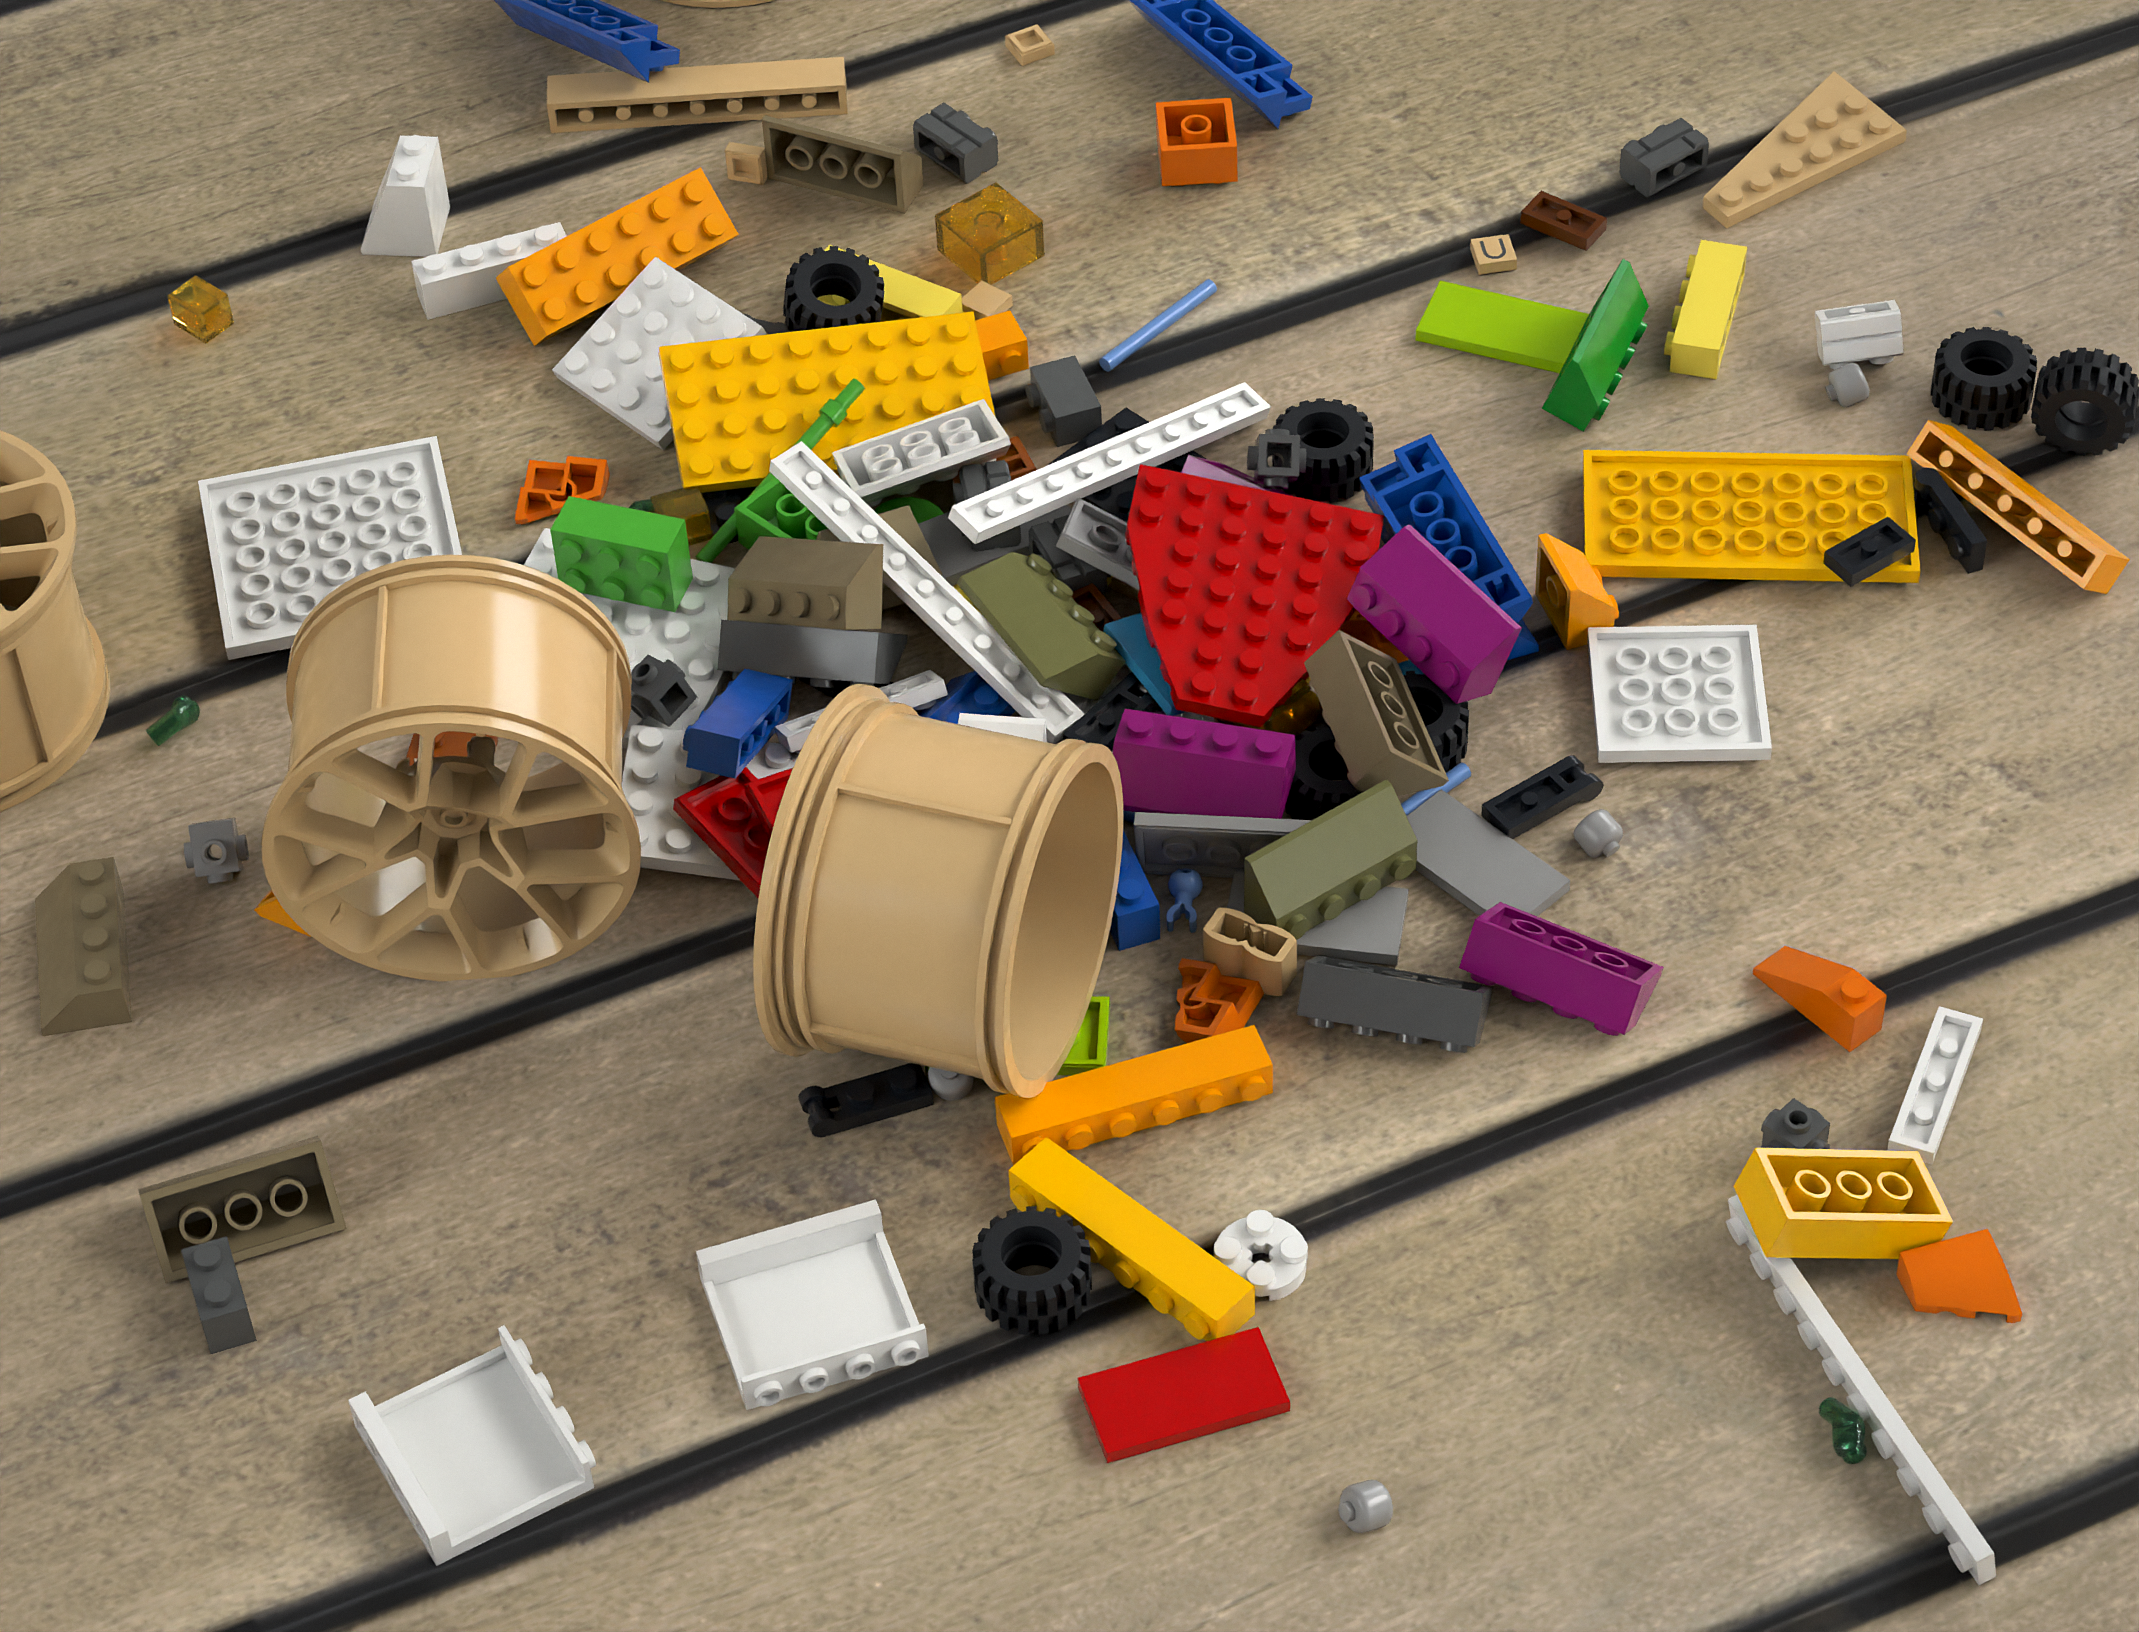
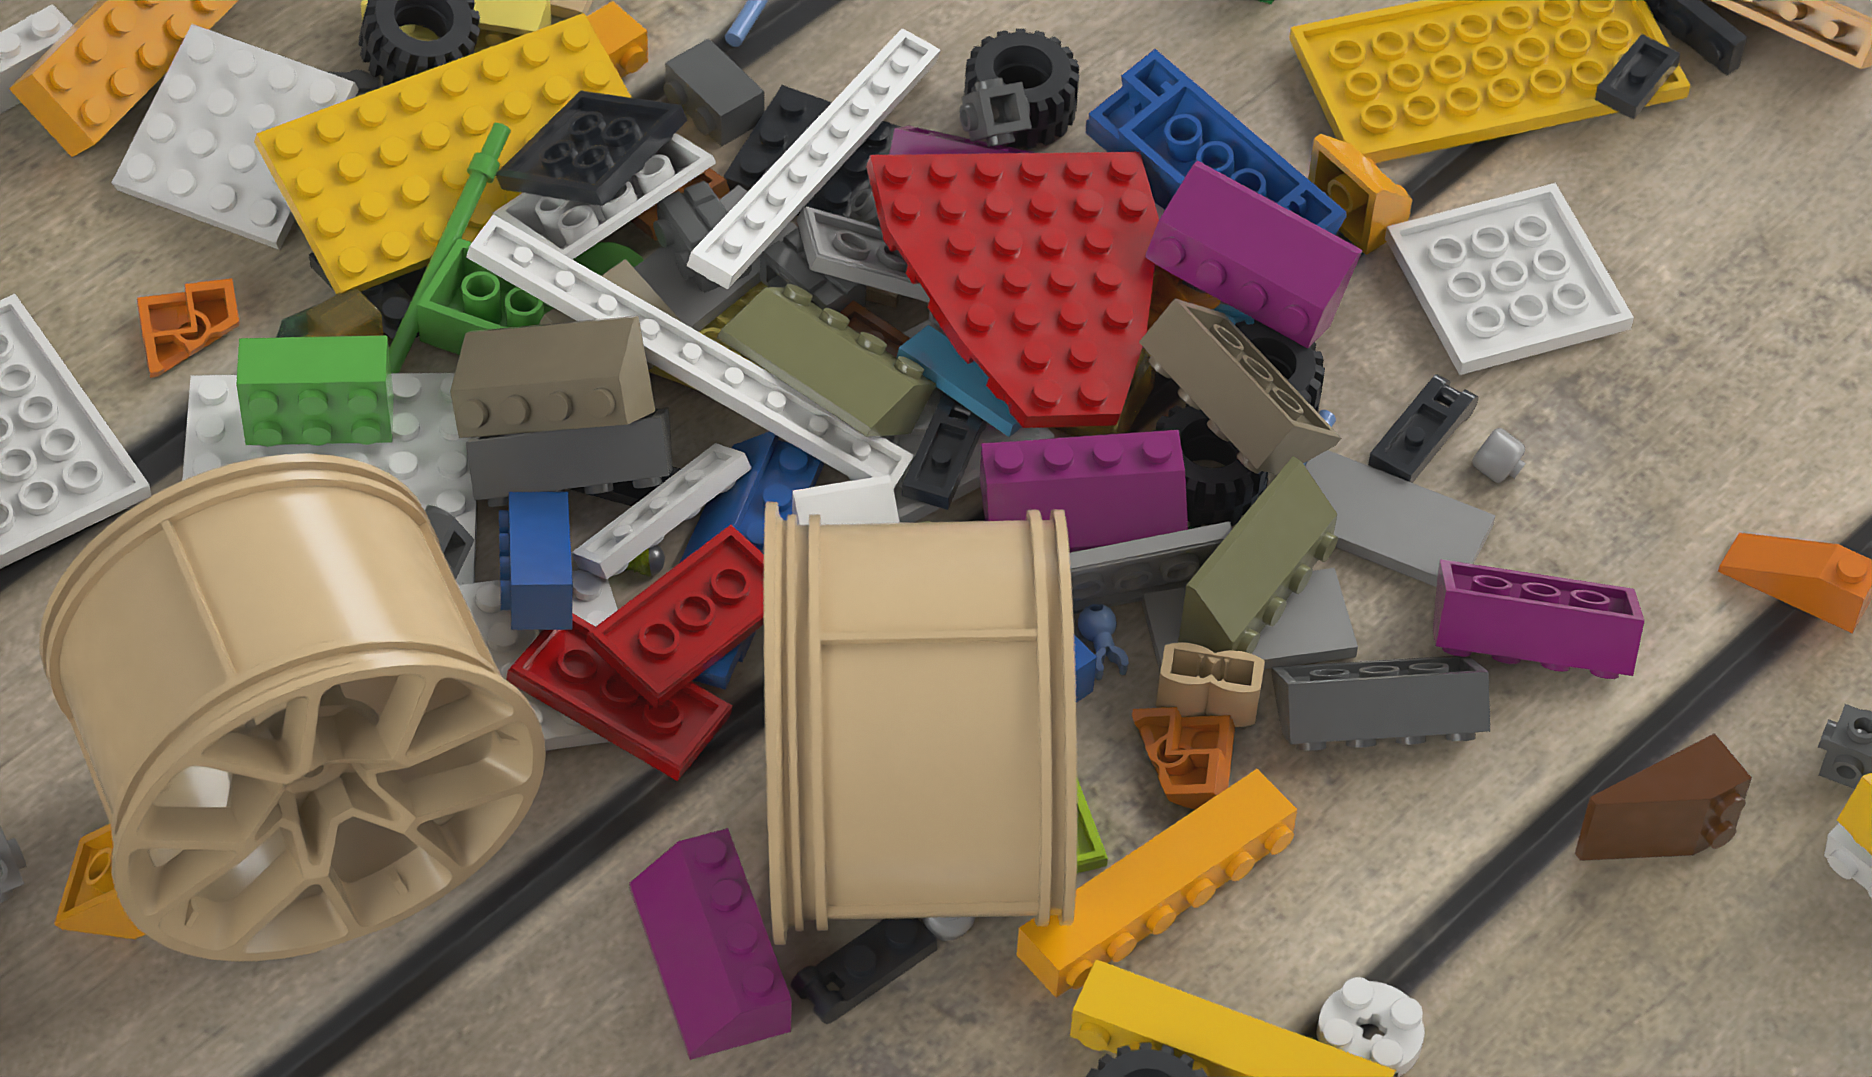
camera: 25 degrees left, 5 degrees up
(741, 1076) = (711, 946): none -> magenta slope
(924, 415) = (591, 147): none -> black plate
(1592, 1142) = (1668, 807): none -> reddish brown slope

